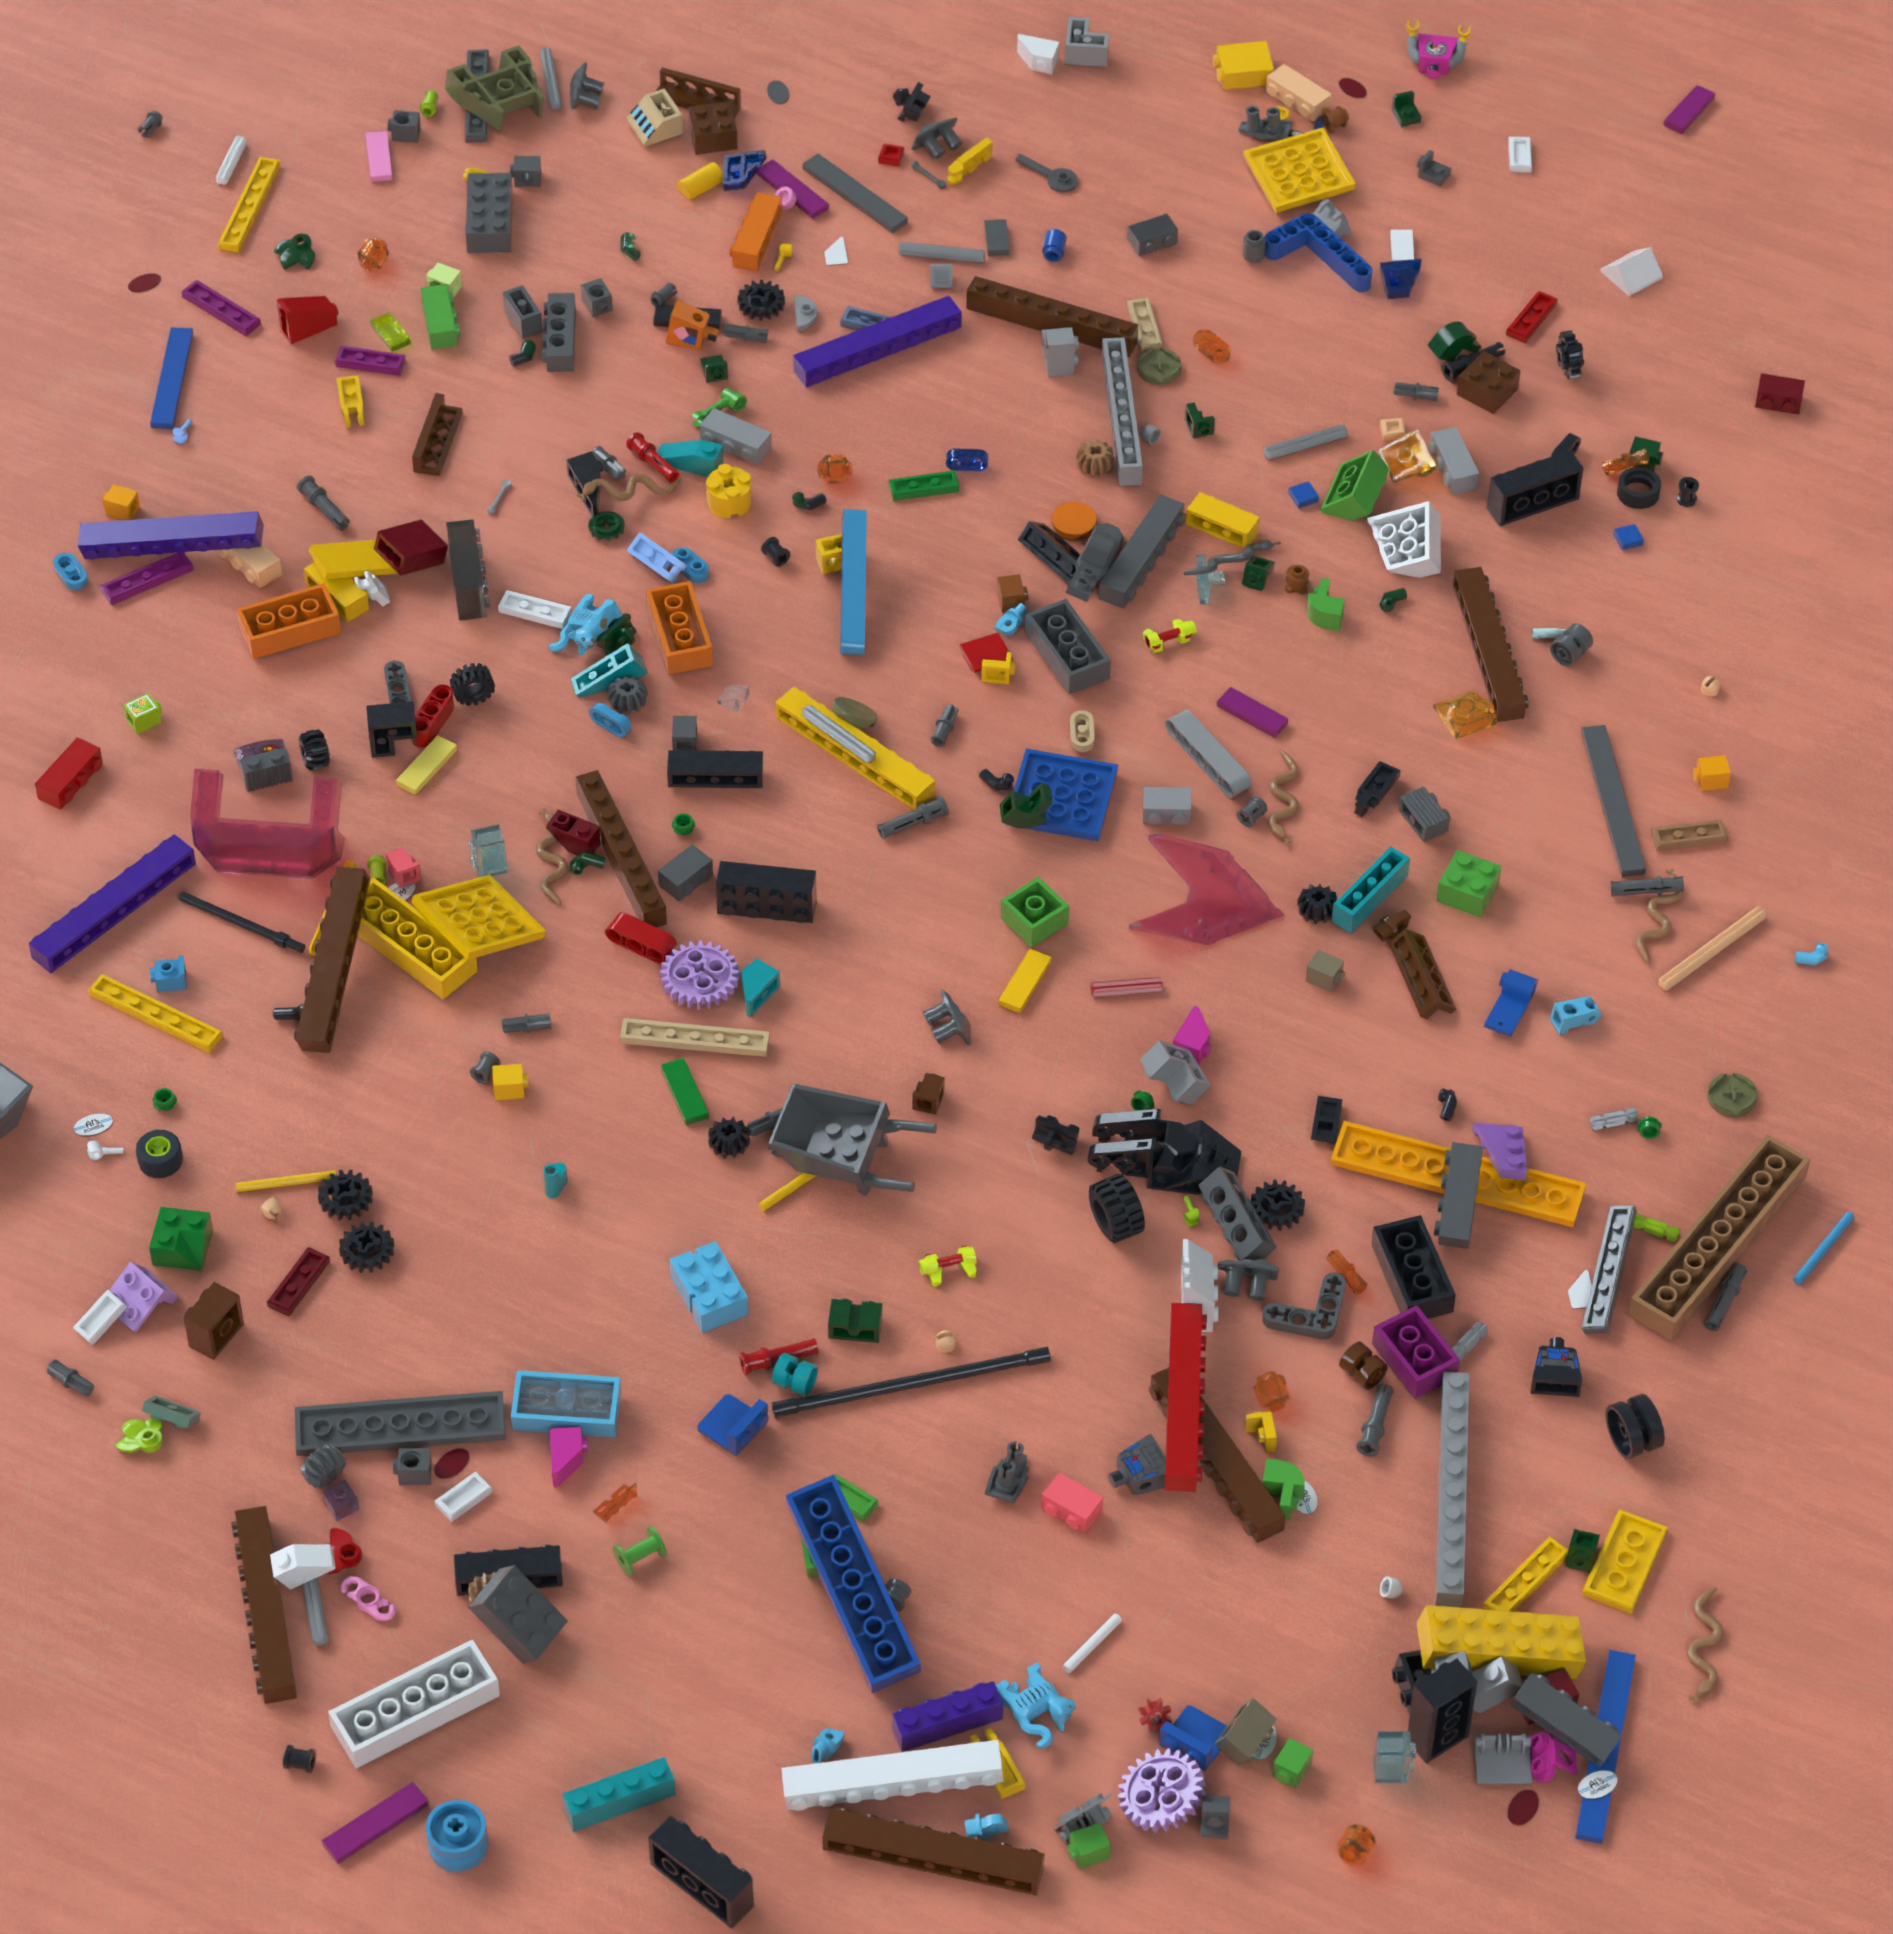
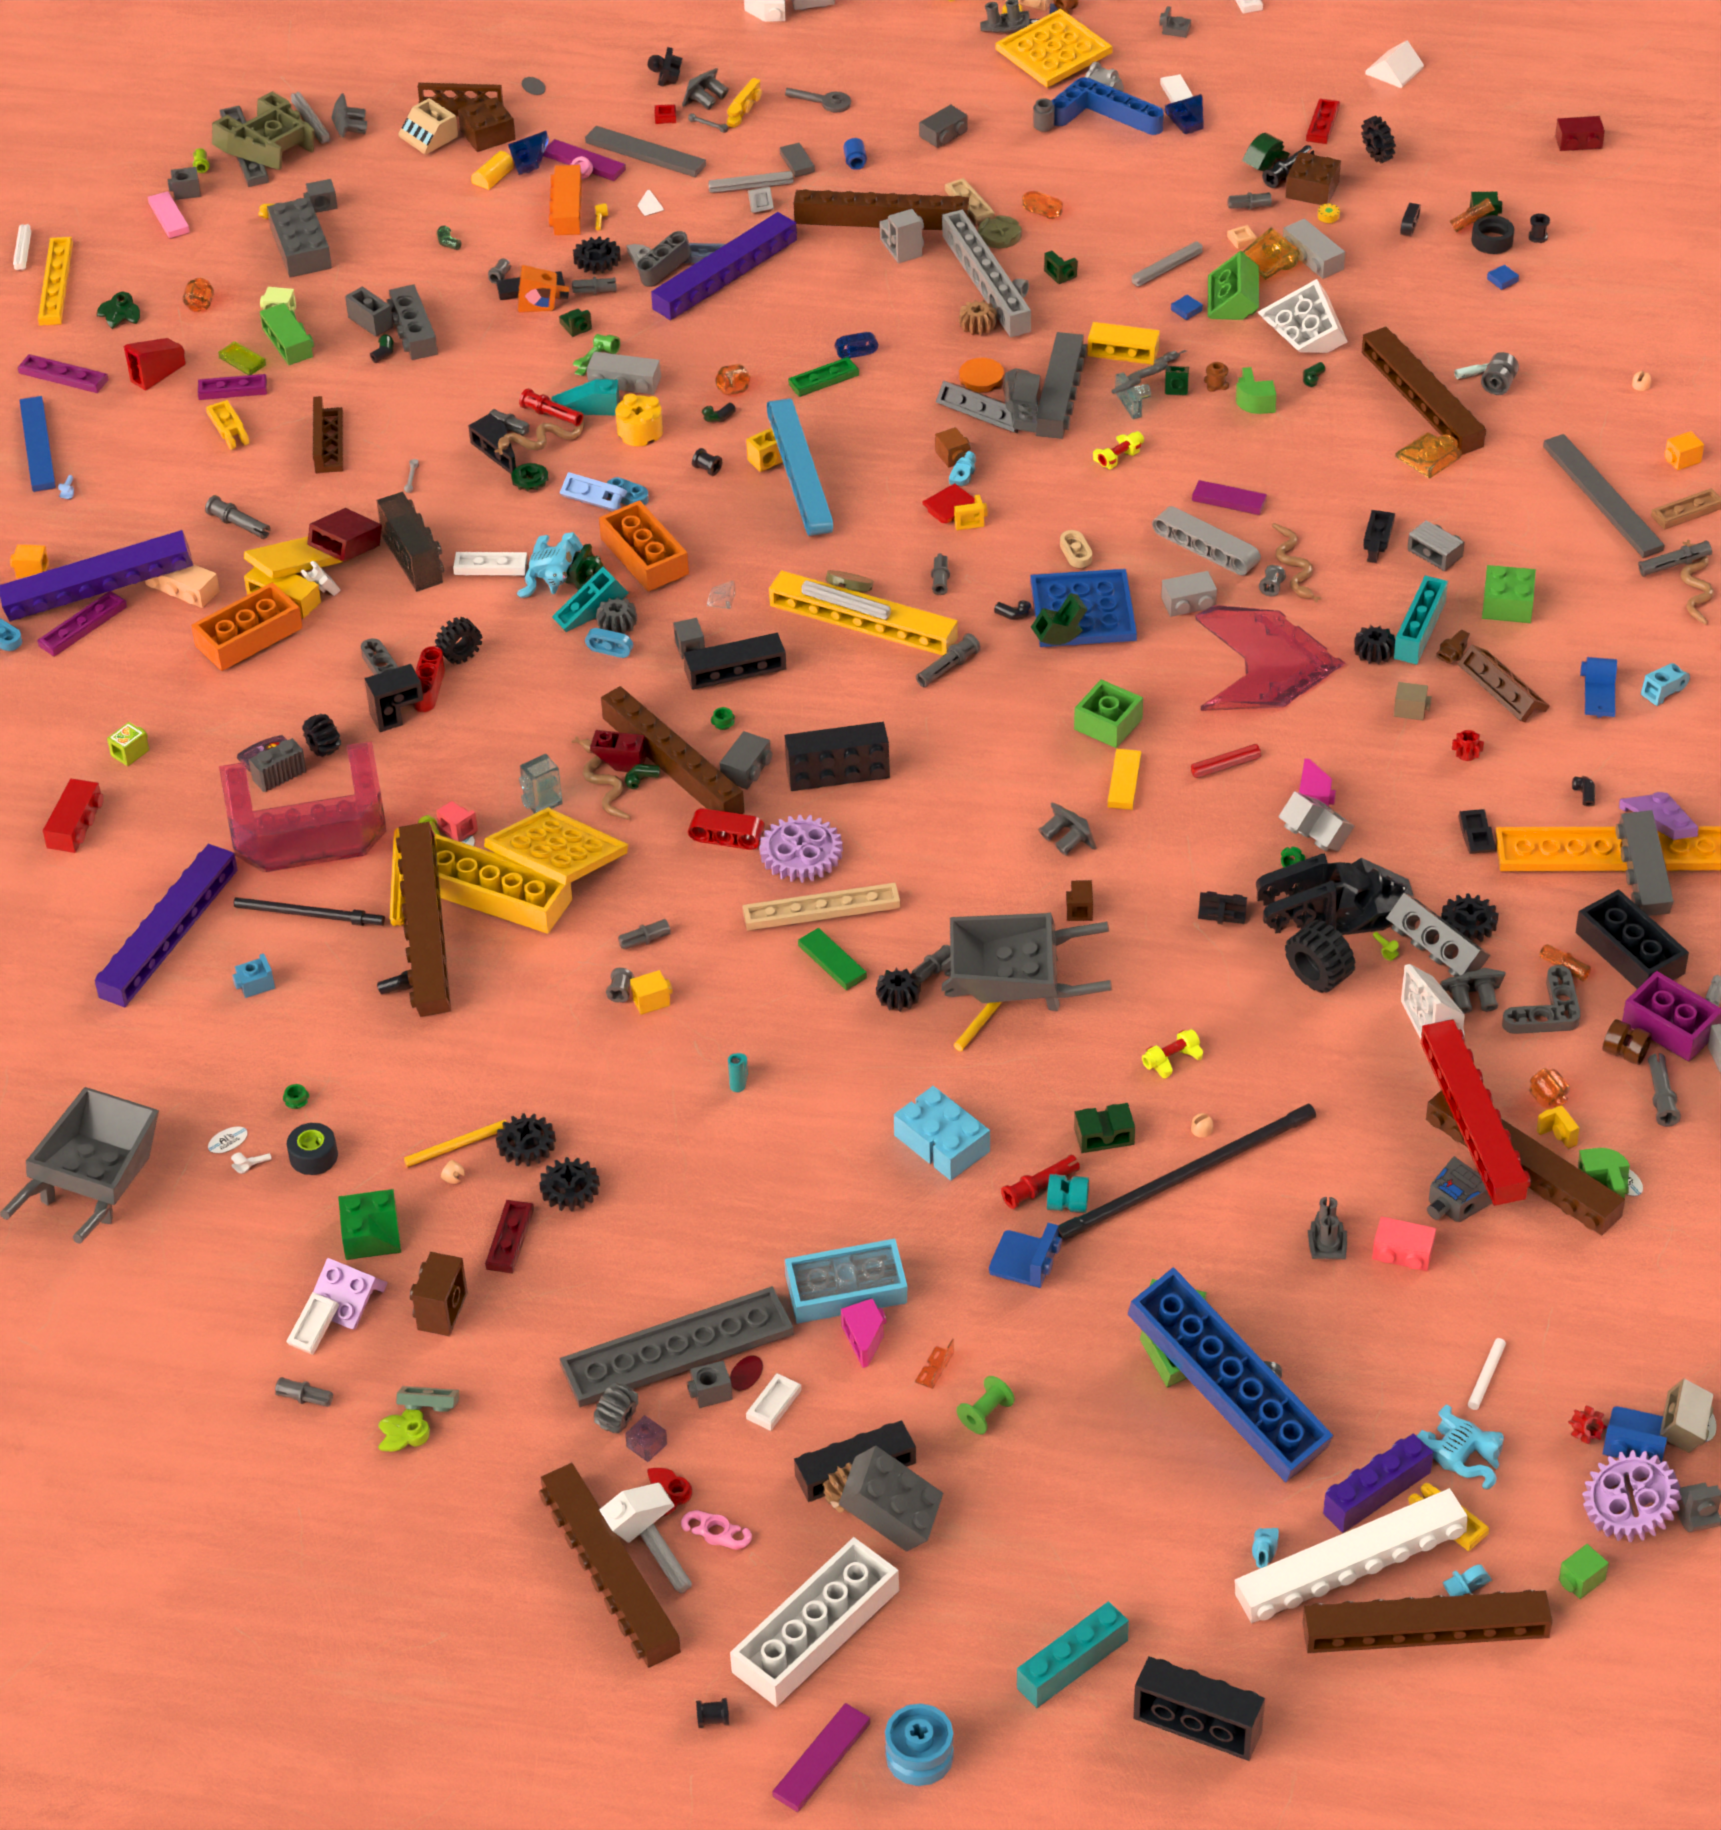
camera: 15 degrees left, 5 degrees down
(155, 1013) = (252, 1018): yellow tile -> none
(426, 765) = (439, 725): light yellow tile -> none
(596, 297) = (435, 286): dark grey brick -> none
(758, 984) = (863, 843): teal slope -> none
(821, 320) = (664, 258): none -> dark grey beam
(1067, 646) = (1029, 478): dark grey brick -> none
(1091, 1813) = (1567, 1542): light grey hinge -> none
(1357, 1030) = (1467, 745): none -> red gear
(1489, 423) = (1328, 213): none -> yellow tile
(1534, 488) = (1402, 252): black brick -> none

